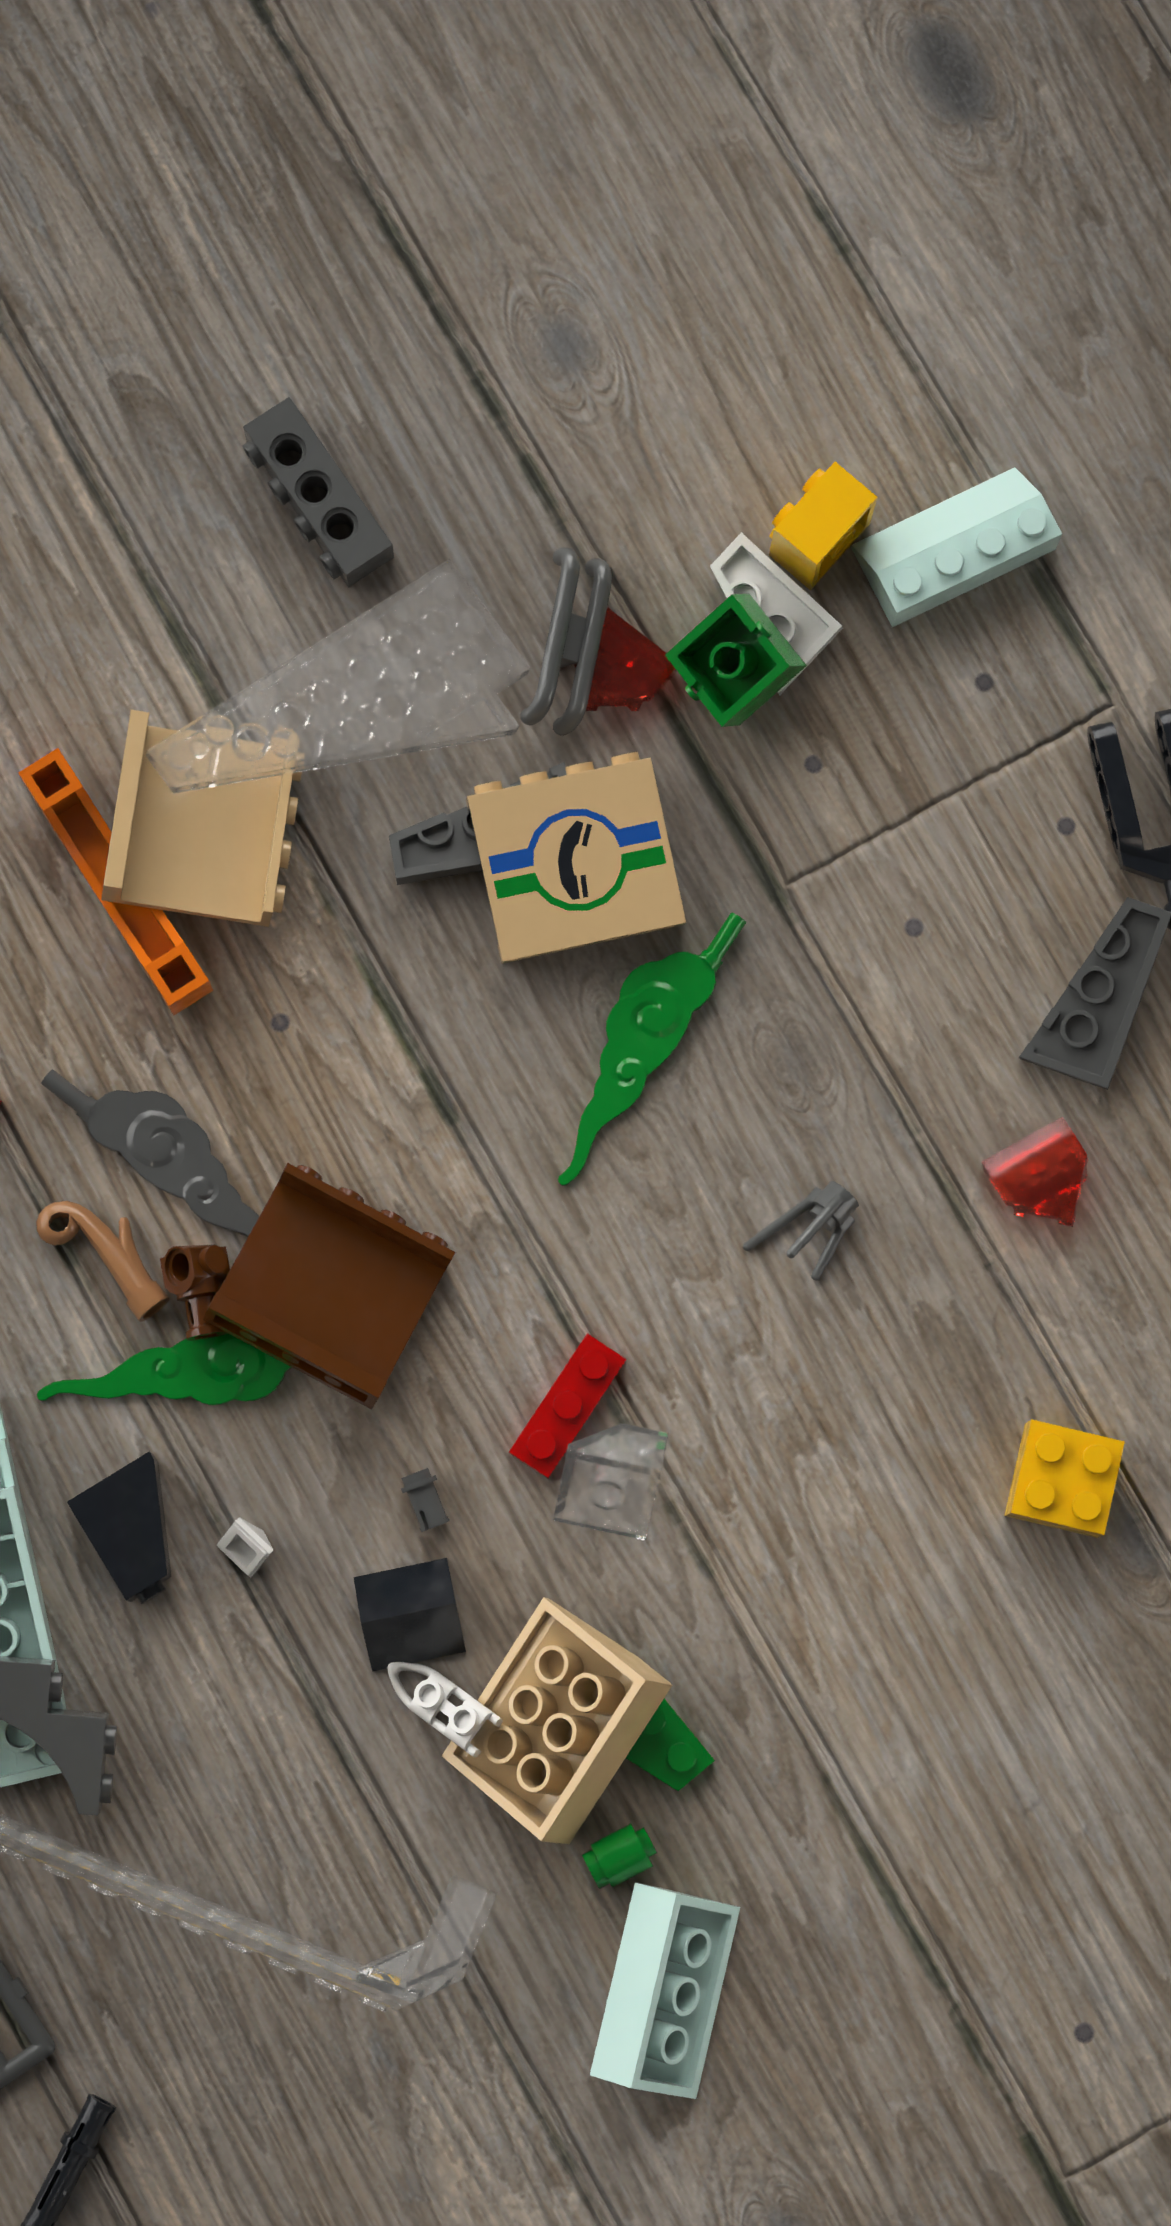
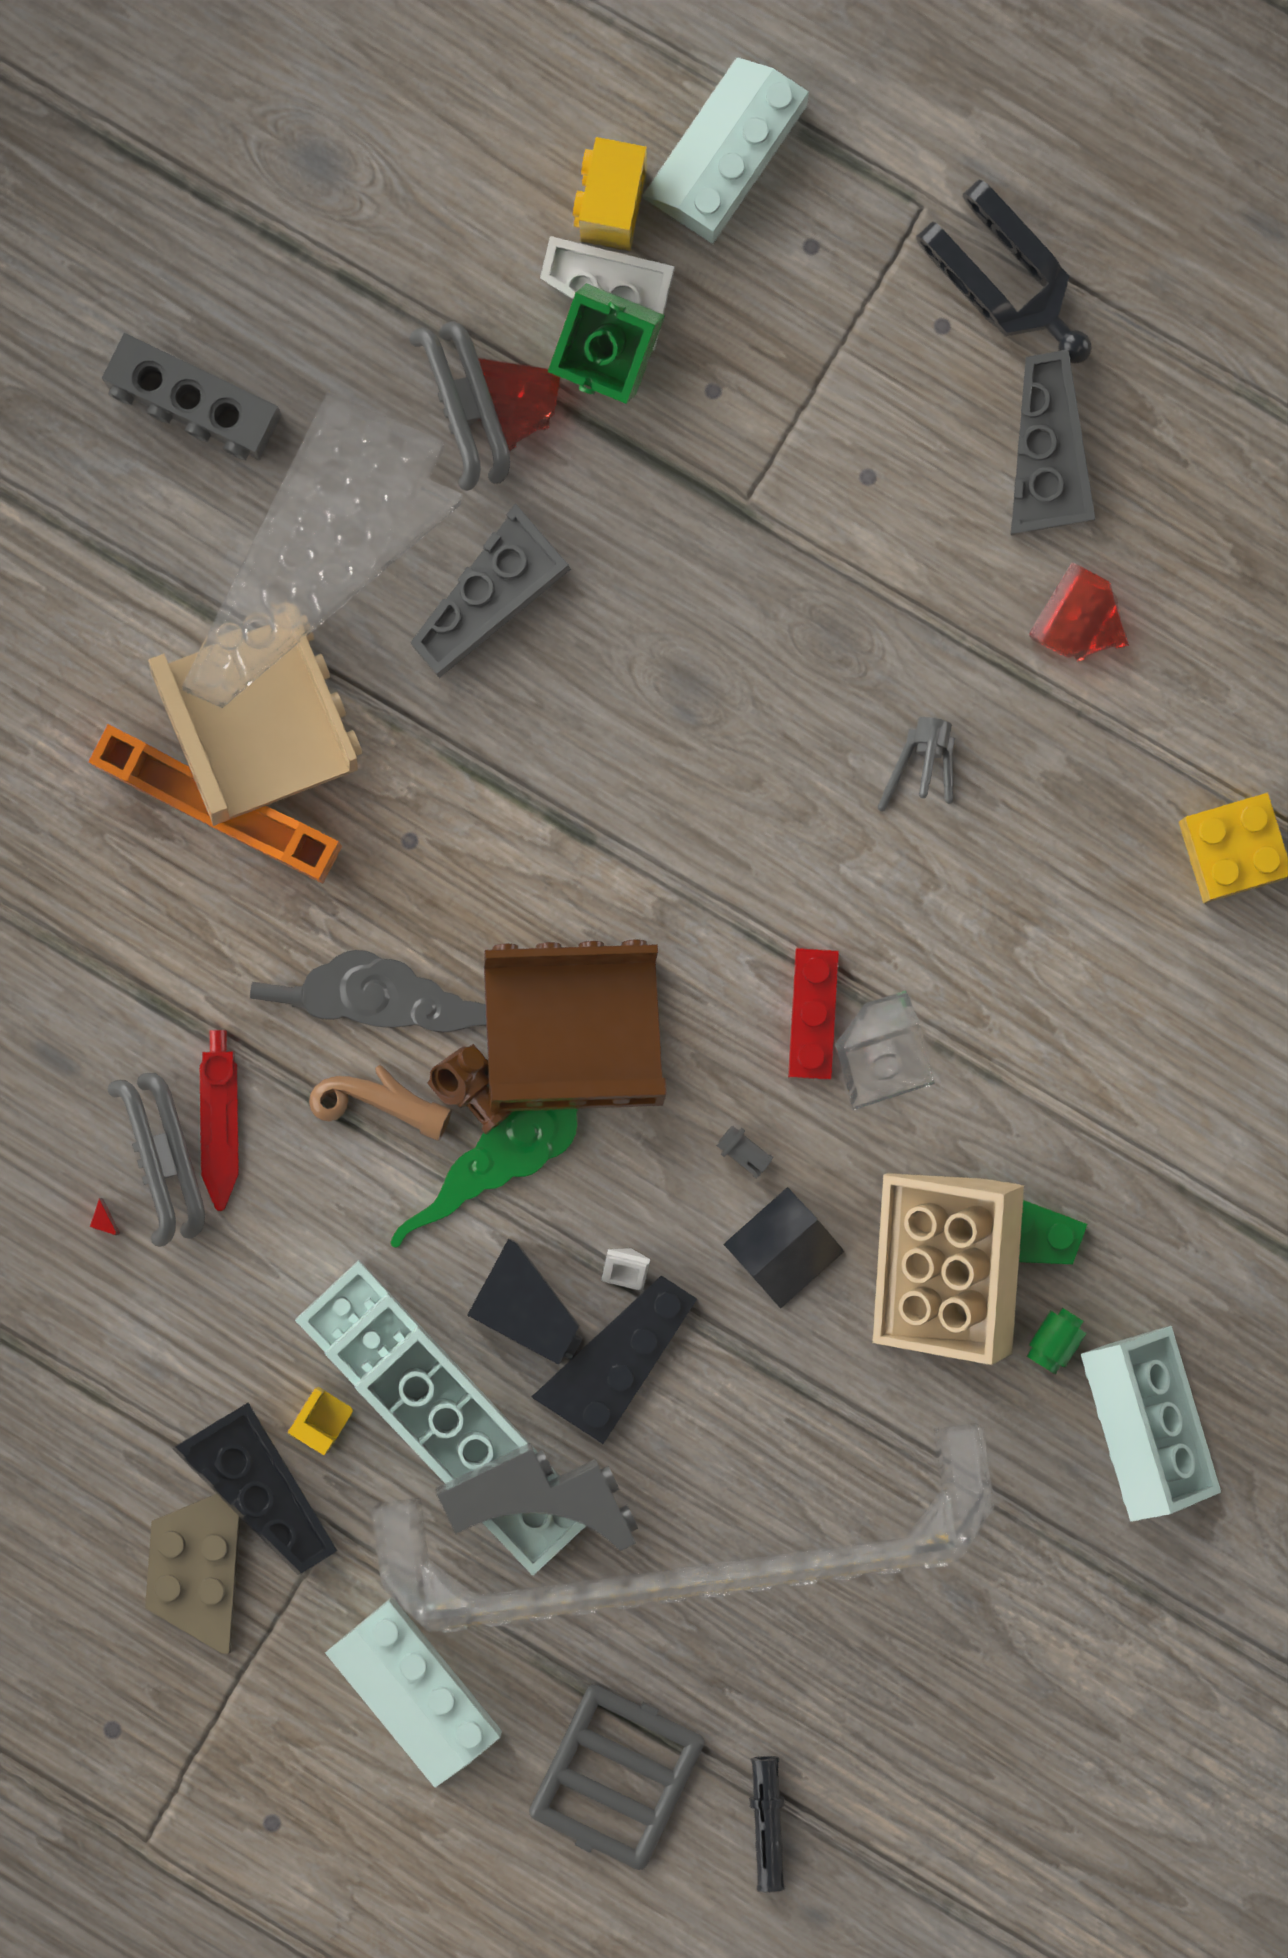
camera: 20 degrees left, 5 degrees up
(179, 1633) = (611, 1368): none -> black wing
(433, 1697) = (840, 1302): white piece -> none
(575, 857) = (570, 575): tan panel -> none
(646, 1029) = (703, 680): green piece -> none

